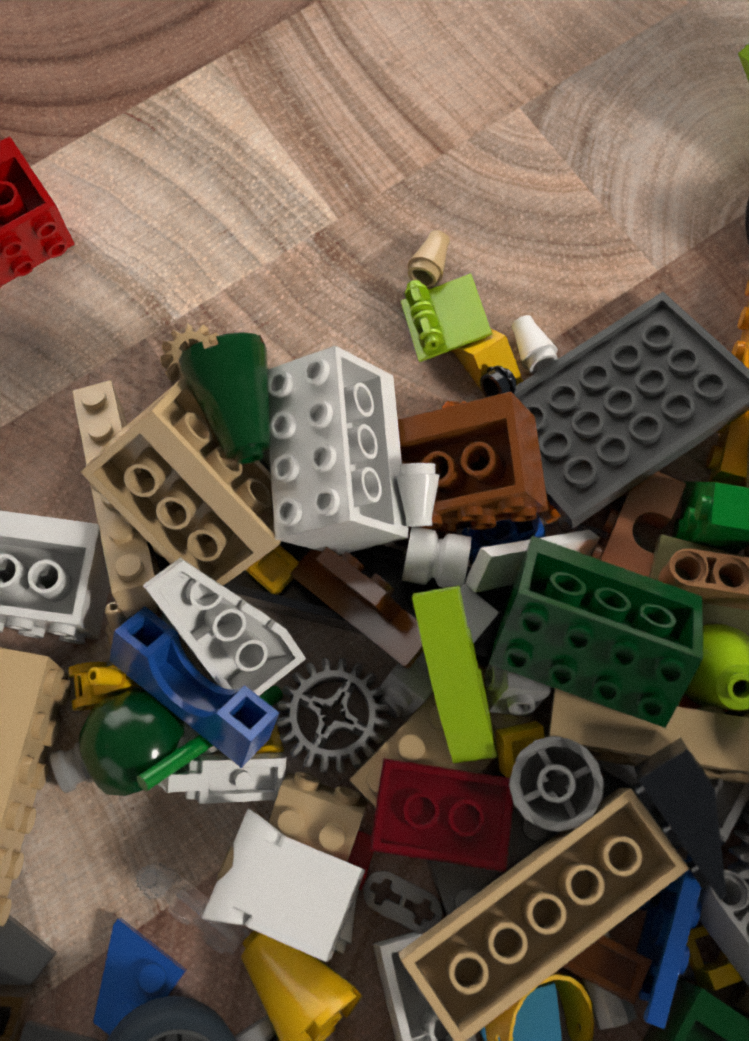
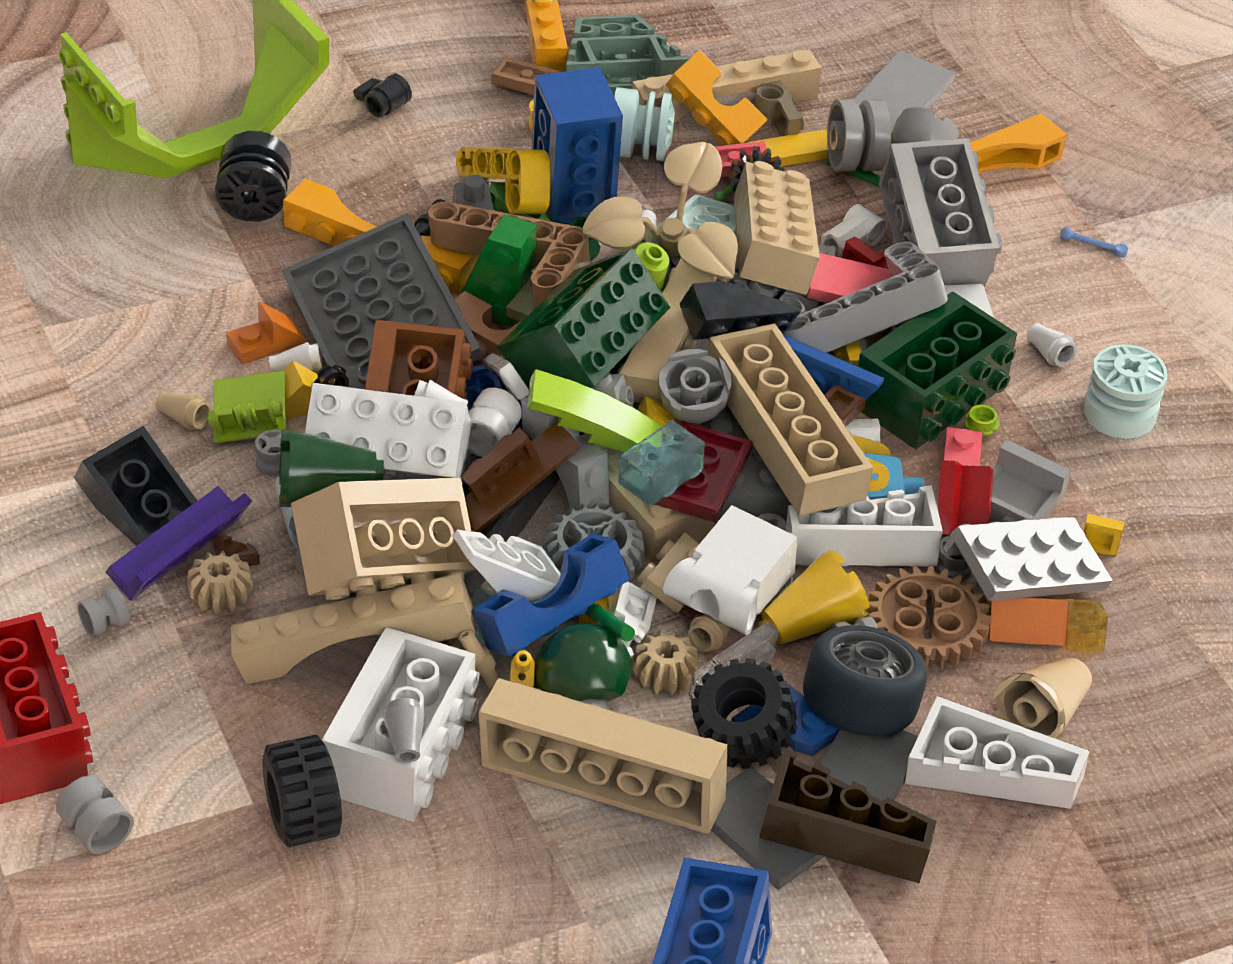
camera: 80 degrees left, 30 degrees down
(66, 930) = (740, 686): none -> black tyre
(136, 271) = (103, 611): none -> light grey wheel
(175, 845) = (665, 662): none -> tan gear
(239, 304) = (176, 541): none -> dark purple fence
(296, 253) = (134, 485): none -> black slope
(392, 348) = (268, 452): none -> light grey wheel
(411, 770) = (661, 463): none -> clear light blue brick
(568, 306) = (269, 336): none -> orange slope

